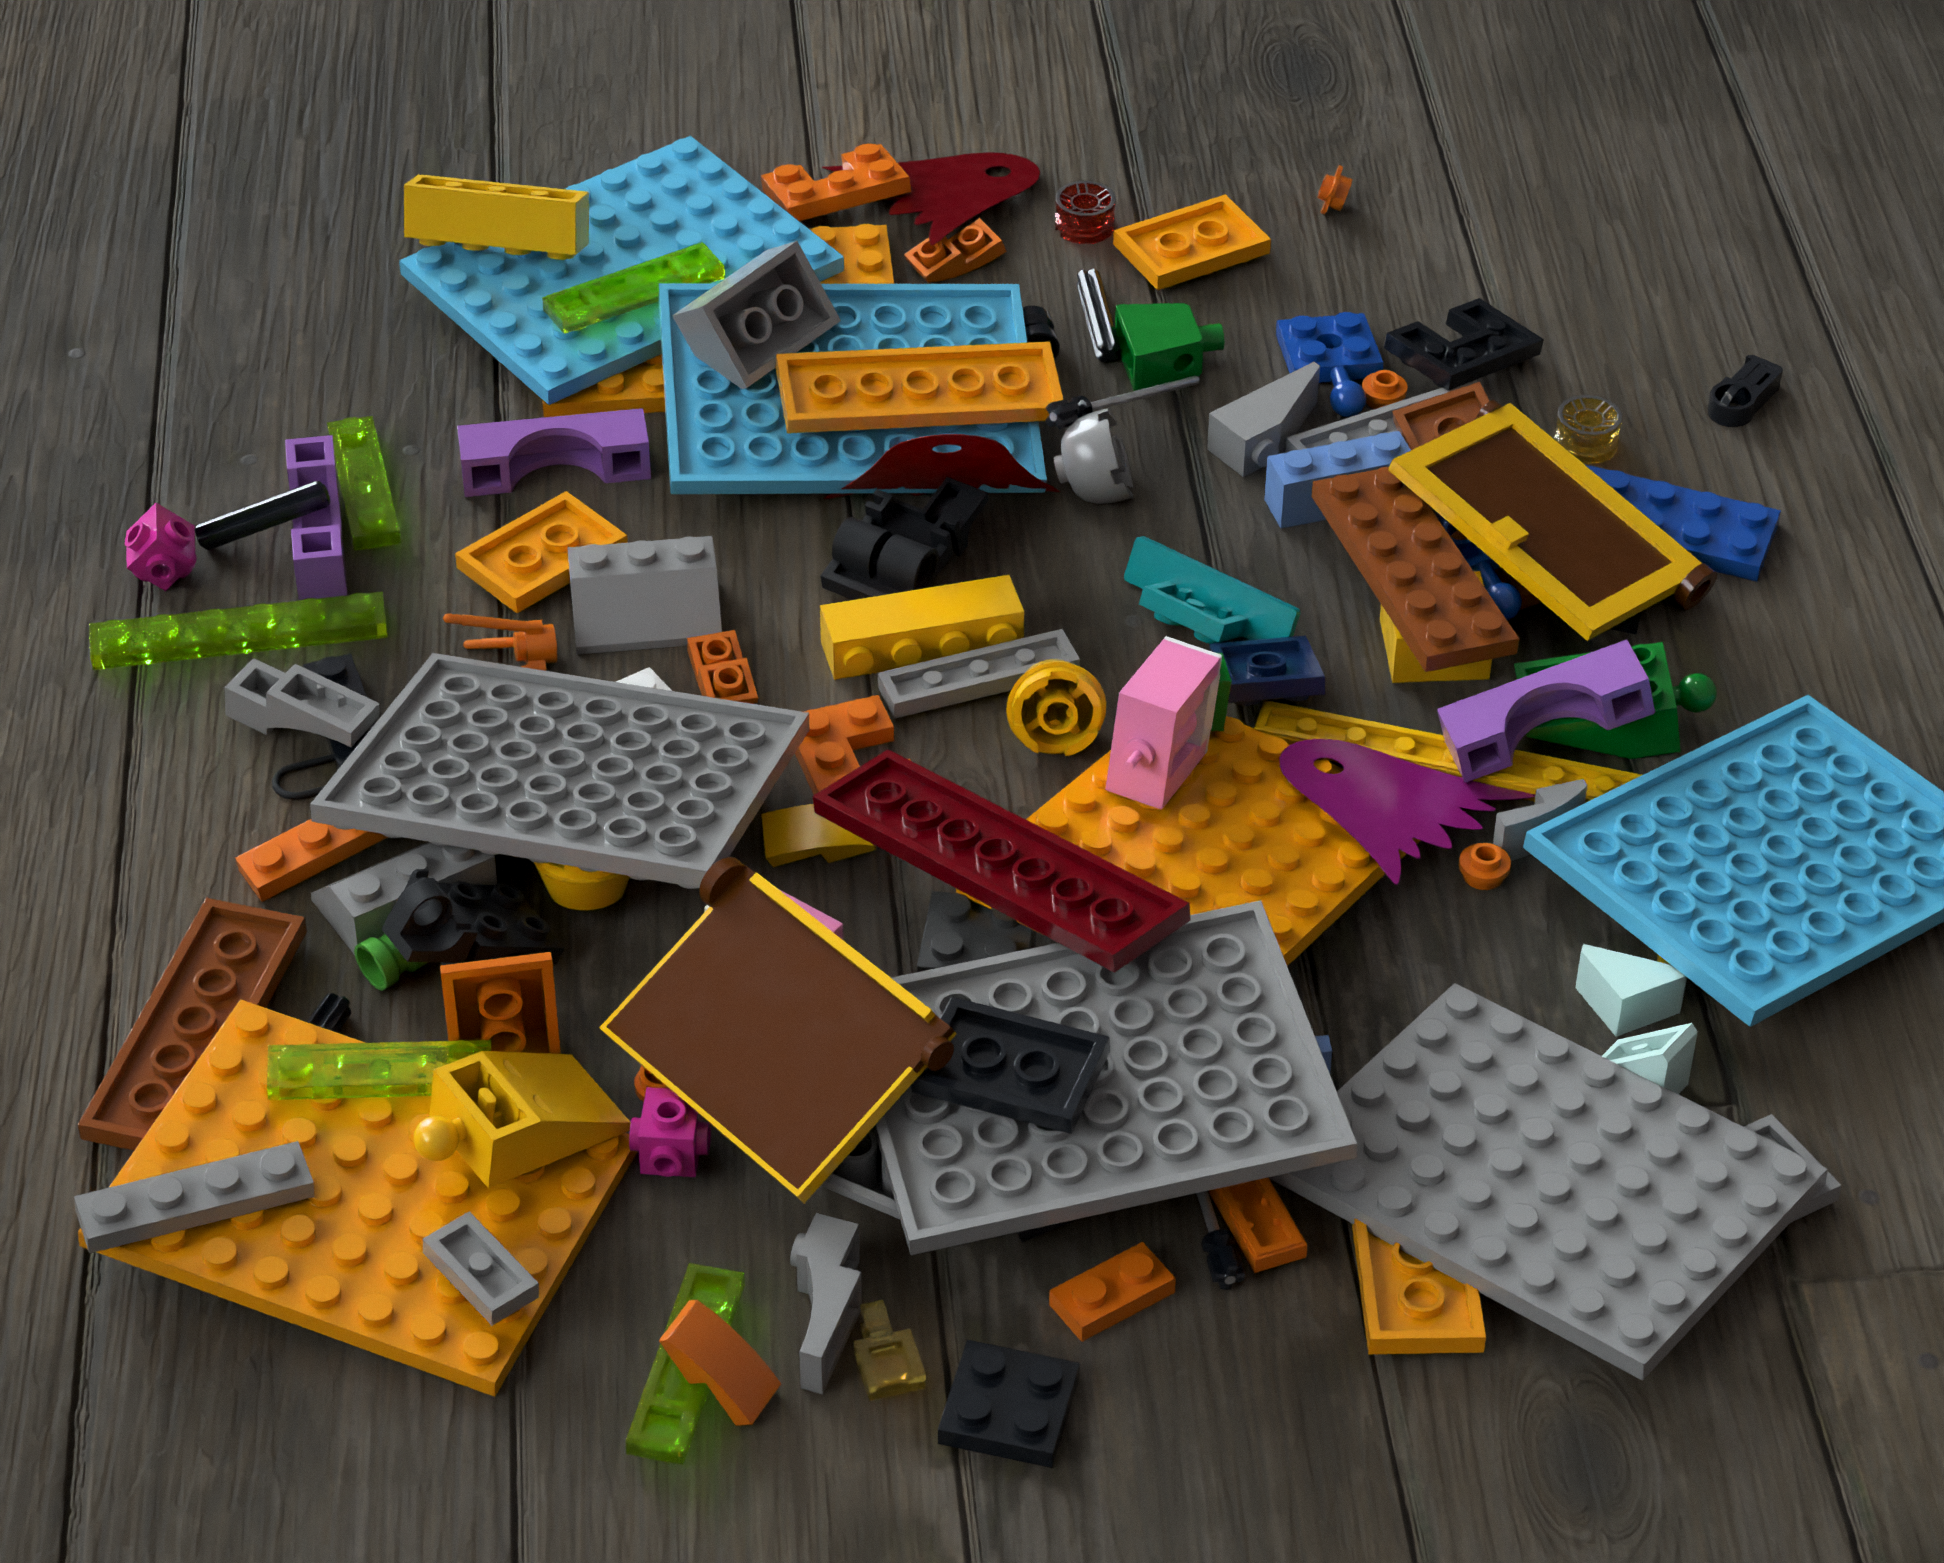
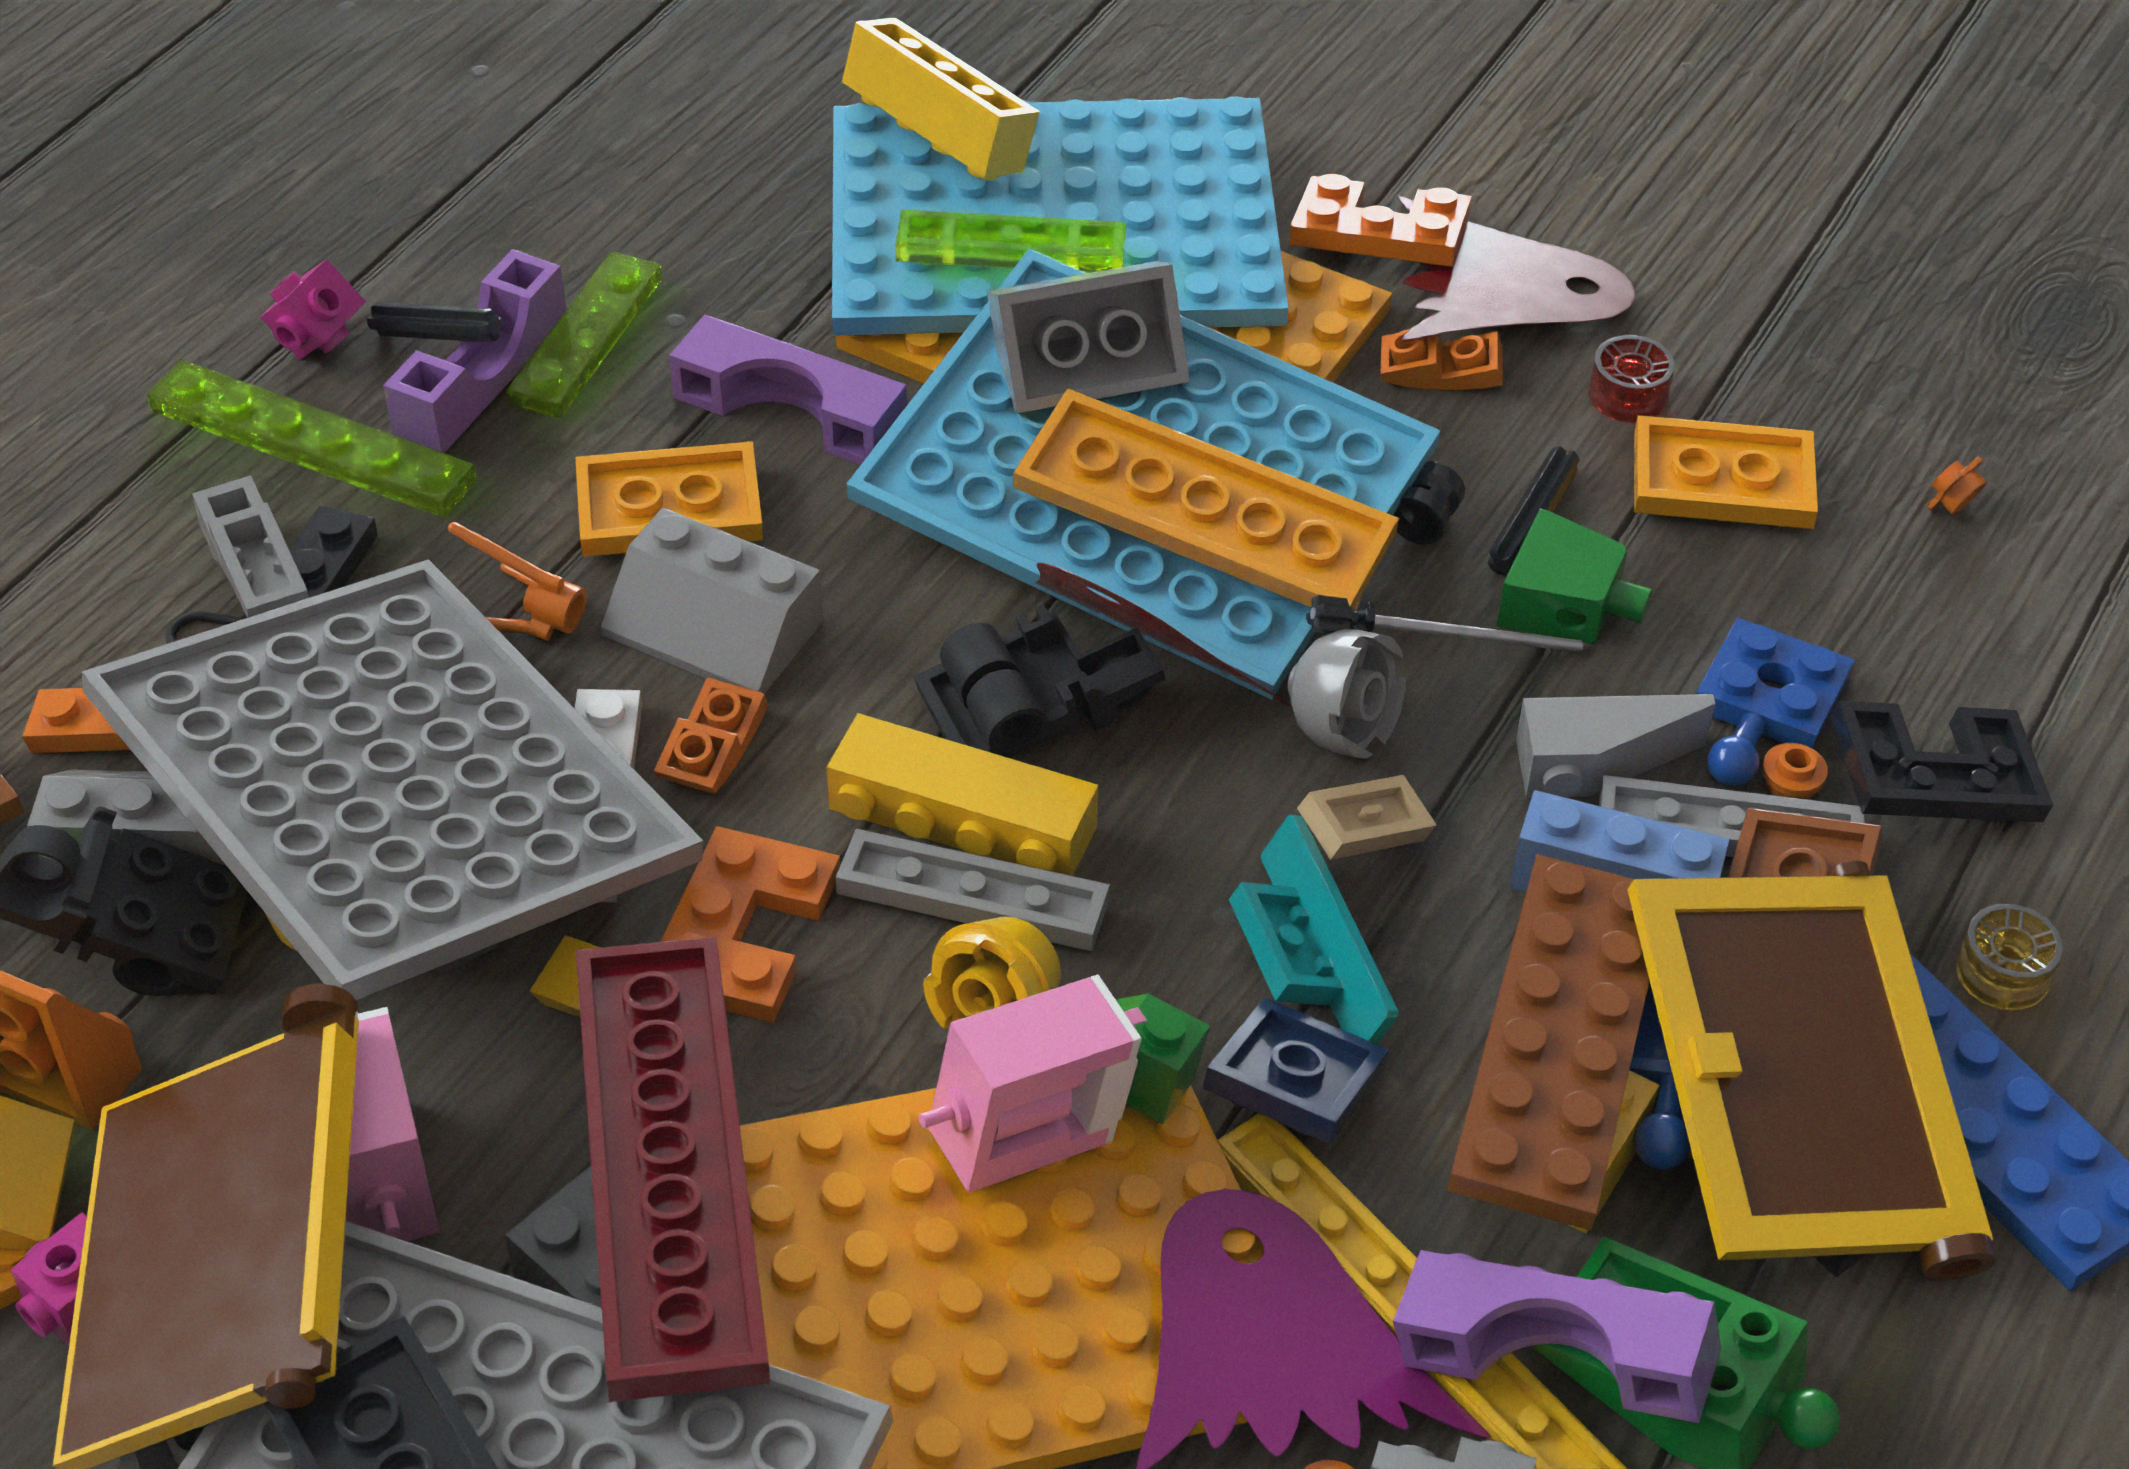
camera: 35 degrees right, 5 degrees up
(1175, 521) = (1366, 816): none -> tan plate

